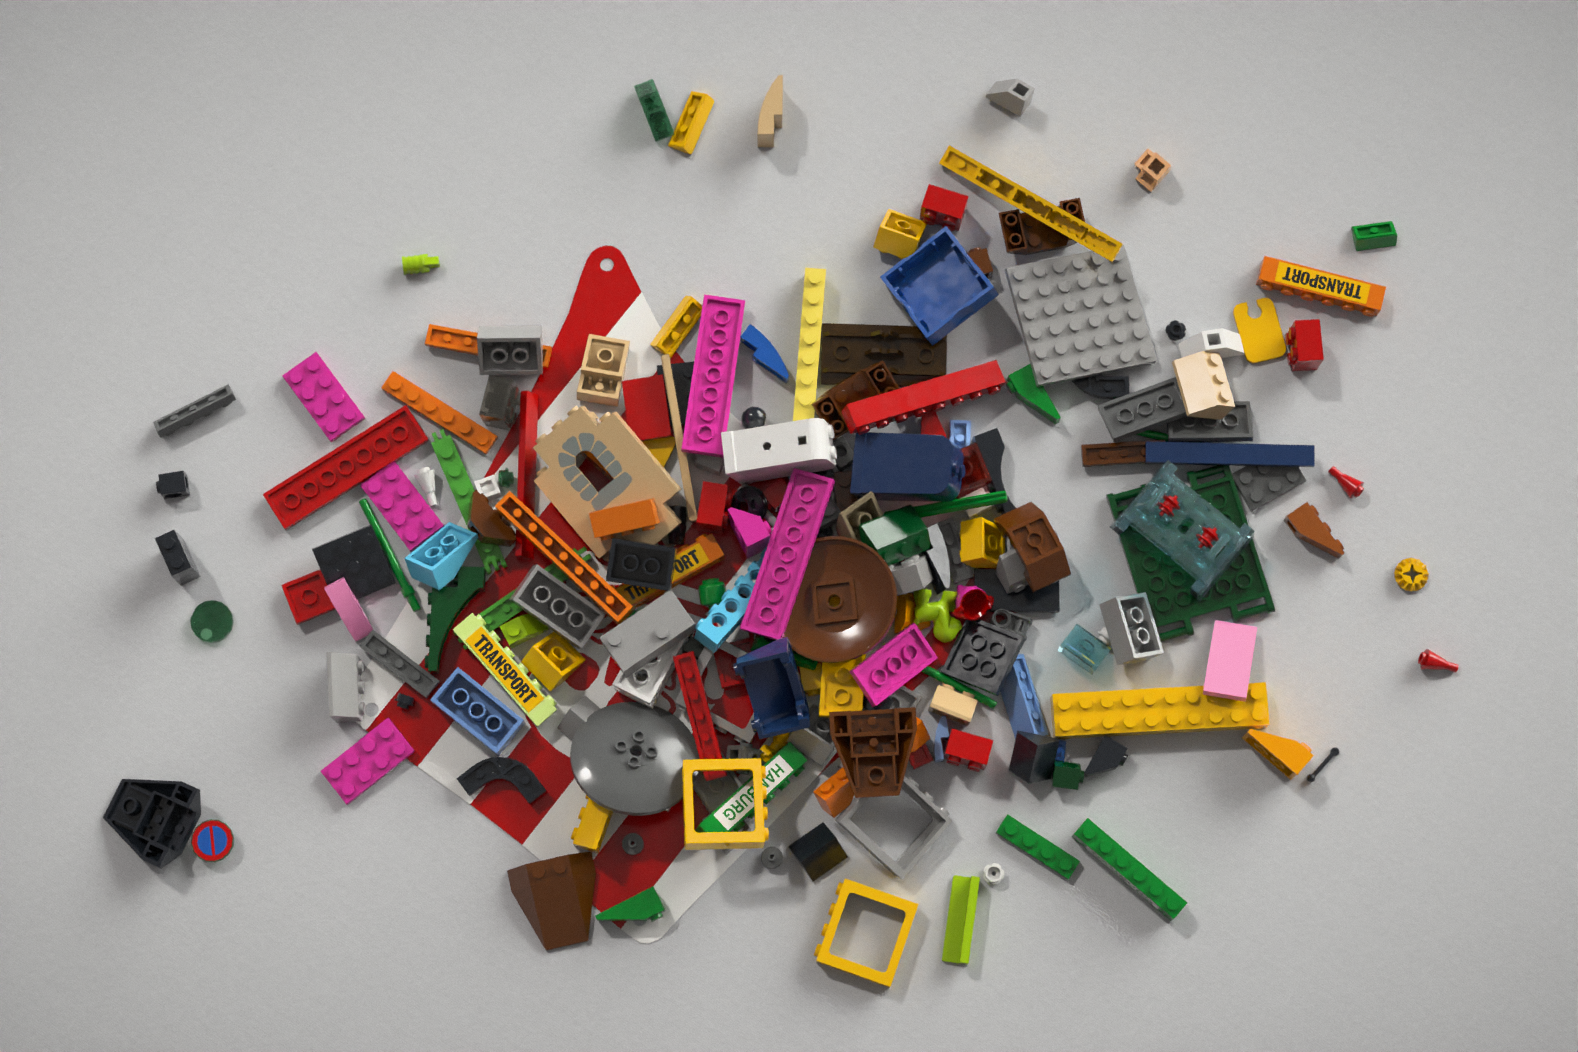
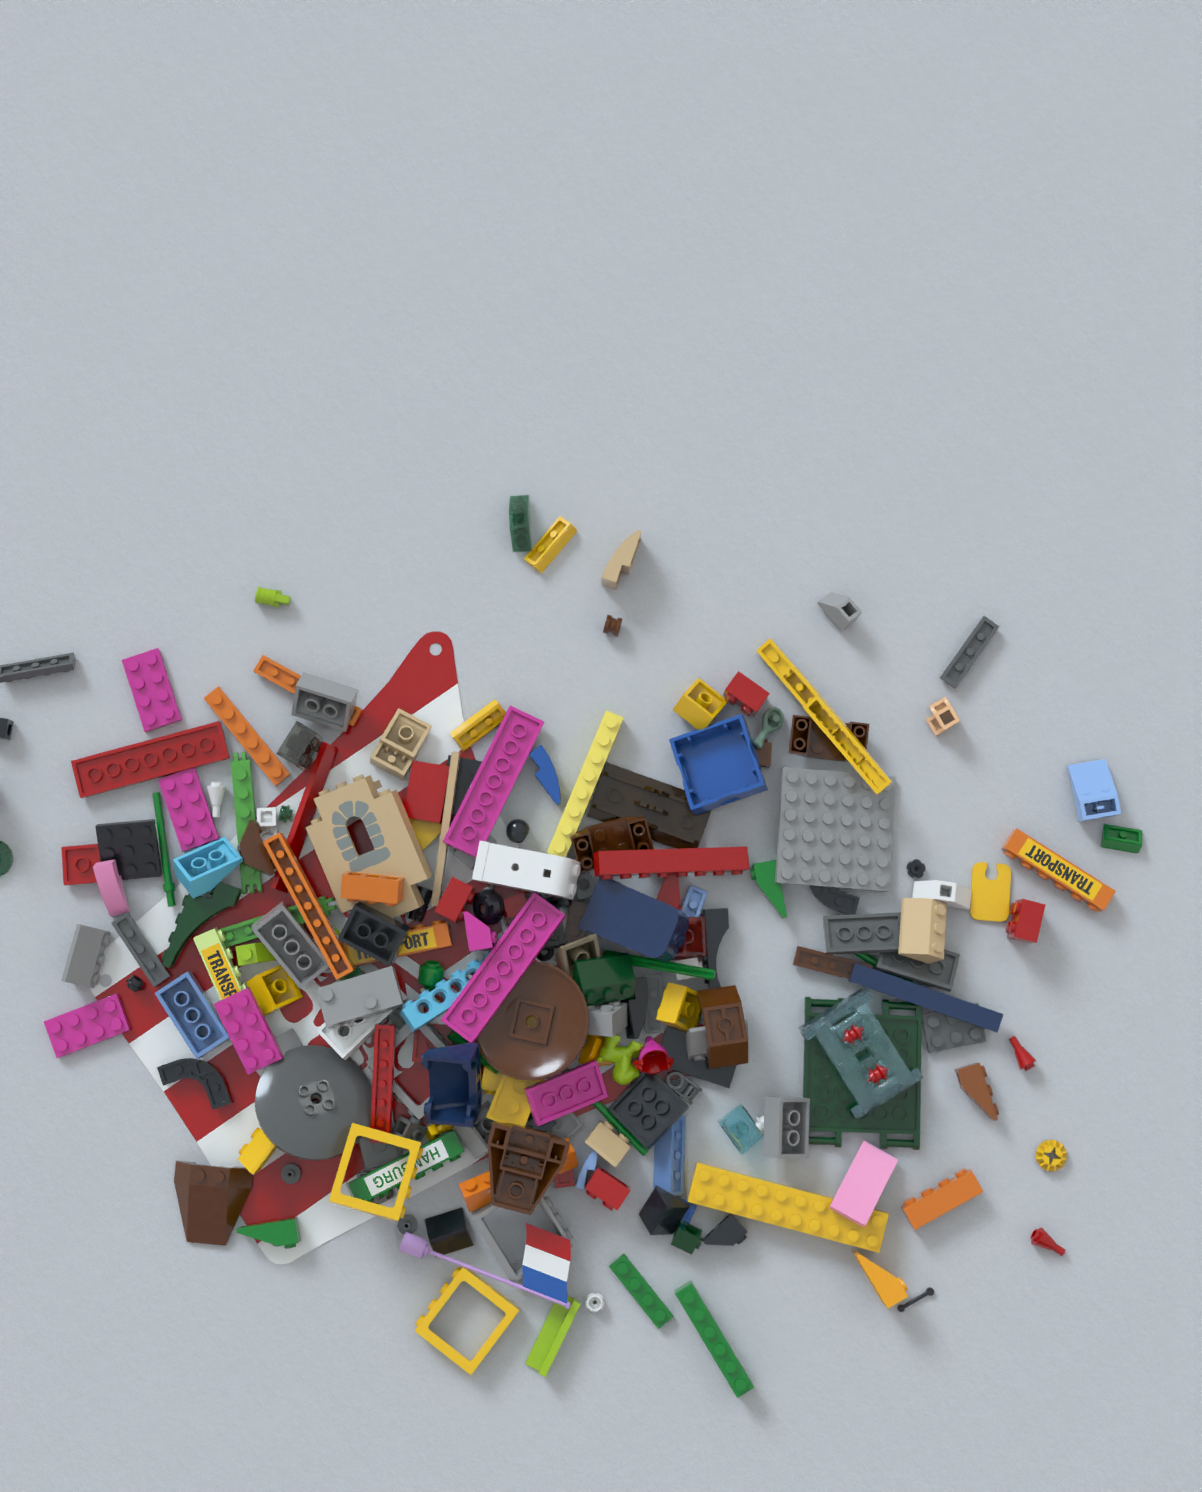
camera: 20 degrees right, 5 degrees up
(541, 706) = (248, 1030): none -> dark pink plate
(783, 183) = (612, 625): none -> reddish brown wheel
(928, 847) = (543, 1266): none -> flag
(978, 228) = (771, 722): none -> sand green piece
(1156, 97) = (969, 652): none -> dark grey plate
(1314, 653) = (941, 1199): none -> orange brick
(1330, 196) = (1093, 790): none -> light blue slope

